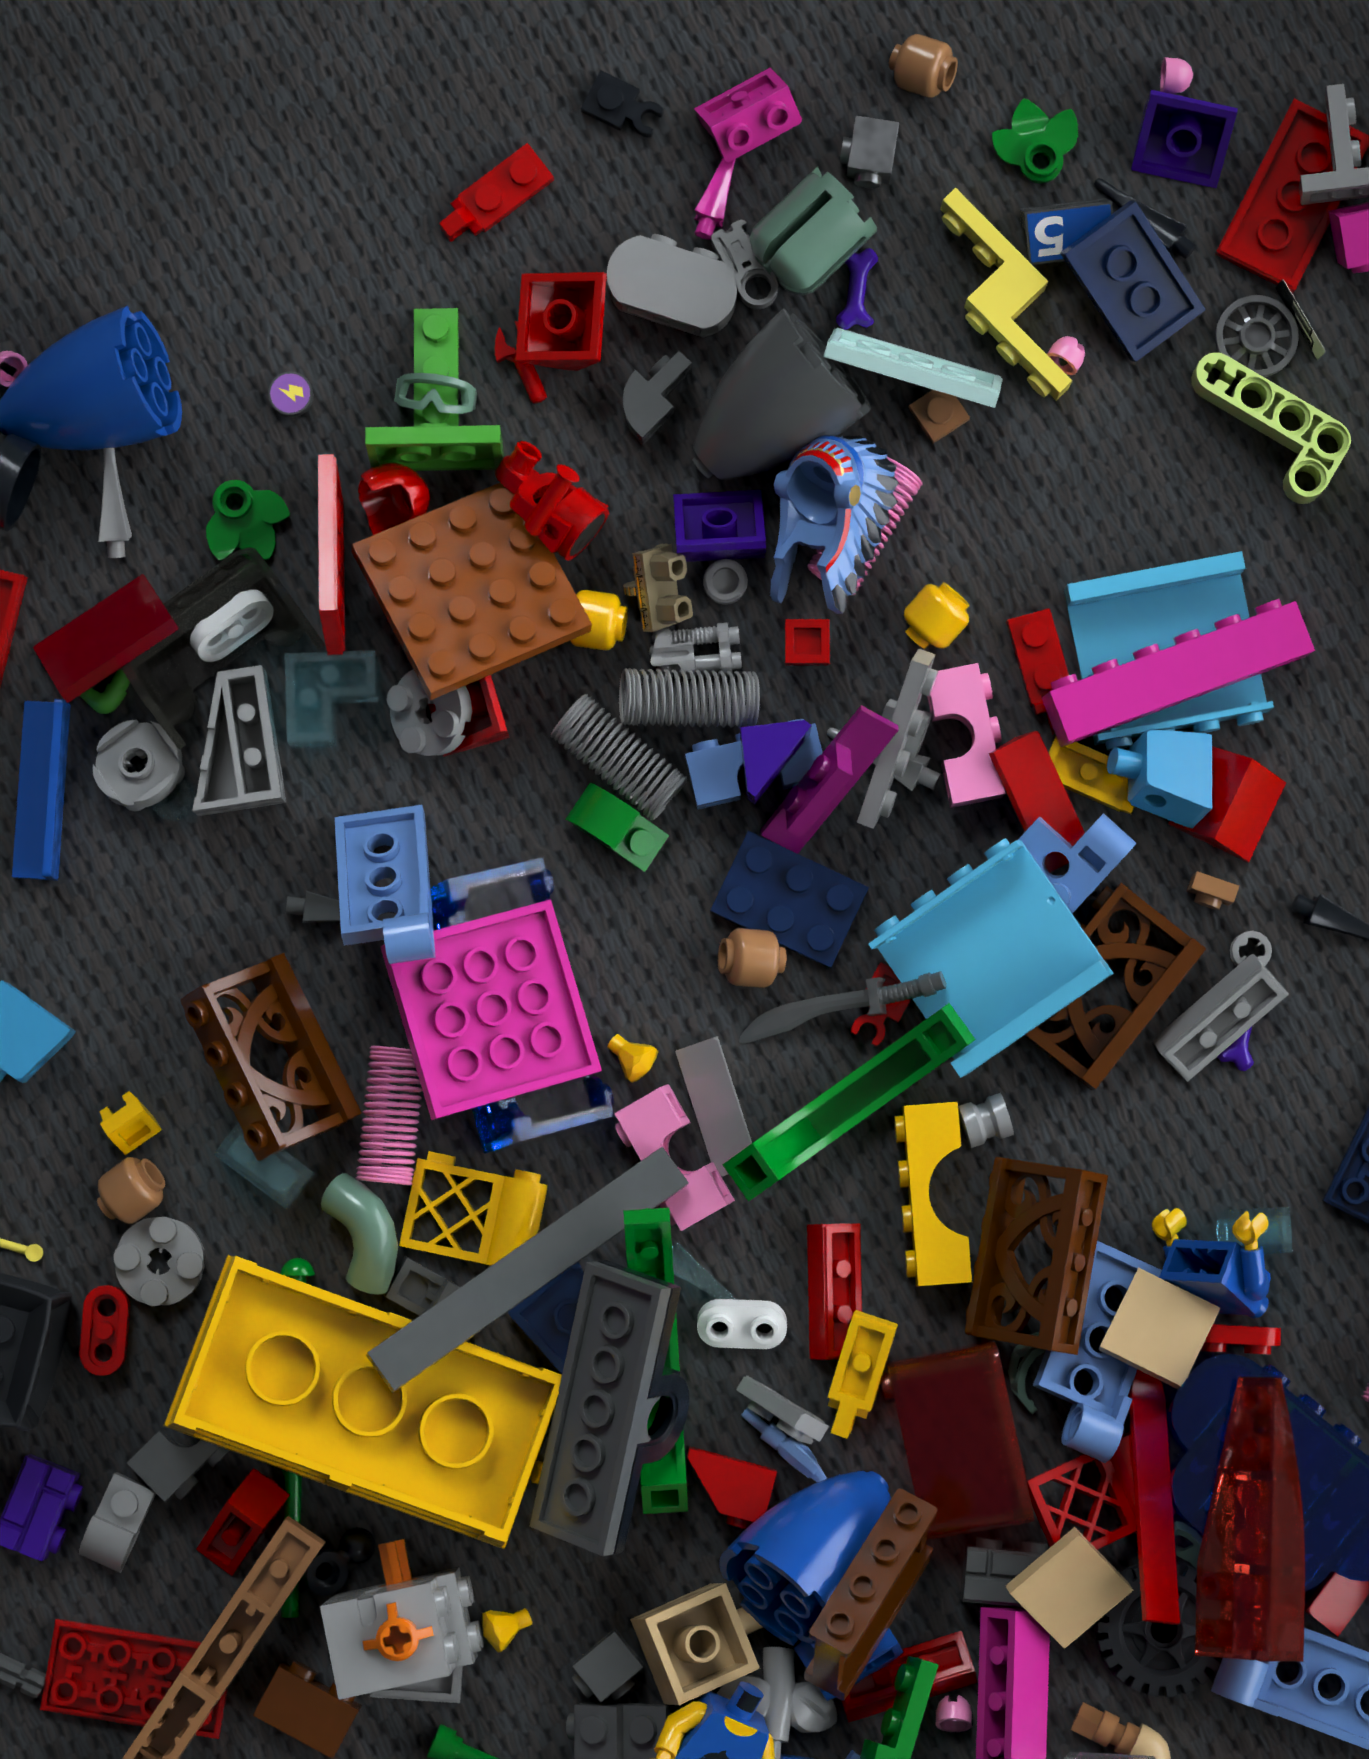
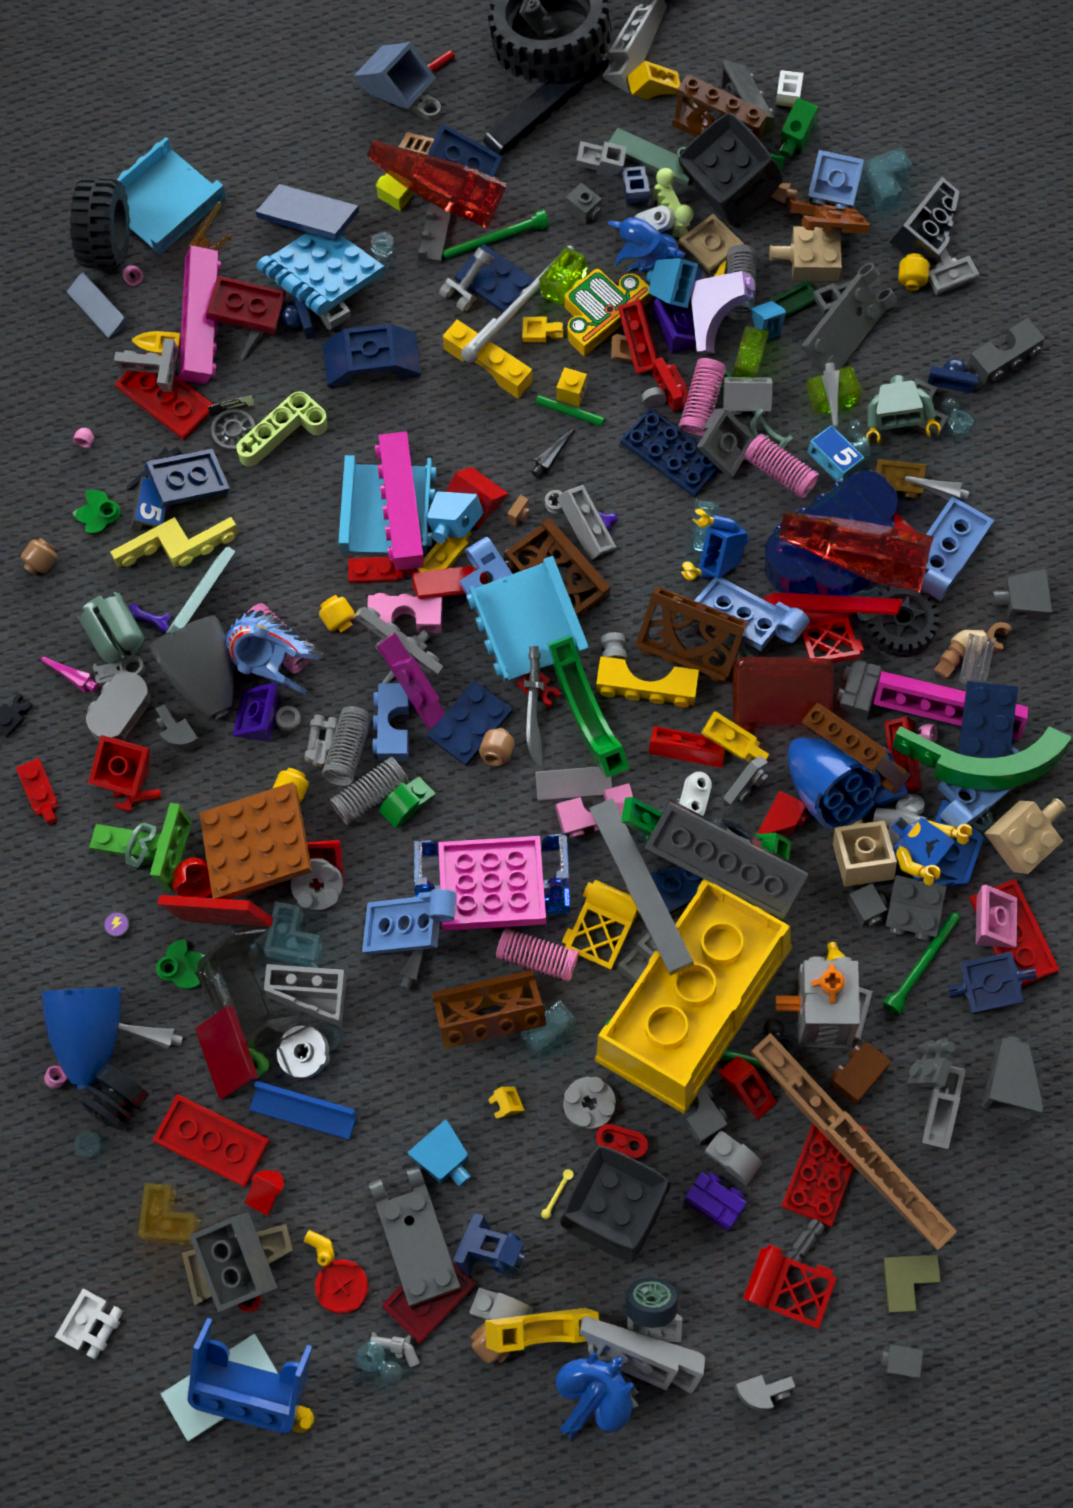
camera: 75 degrees left, 15 degrees down
(130, 1190) = (545, 1108): medium nougat head -> none
(231, 625) = (238, 981): white plate -> none
(370, 1229) = (599, 978): sand green cylinder -> none
(565, 515) = (226, 788): red piece -> none
(634, 1057) = (536, 821): yellow rock -> none
(656, 587) = (281, 752): dark tan hips -> none
(749, 114) = (36, 648): dark pink bracket -> none
(767, 751) = (390, 705): dark purple slope -> none
(792, 1451) = (766, 788): light blue hand -> none
(807, 642) = (333, 680): red tile -> none
(870, 151) = (75, 591): flat silver brick -> none
(938, 414) = (227, 591): medium nougat plate -> none
(1069, 1587) = (872, 653): tan tile -> none
(1070, 351) = (214, 518): bright pink hinge -> none
(1159, 1328) = (744, 581): tan tile -> none
(1183, 138) = (118, 438): dark purple slope -> none
(1255, 1338) = (755, 561): red plate -> none

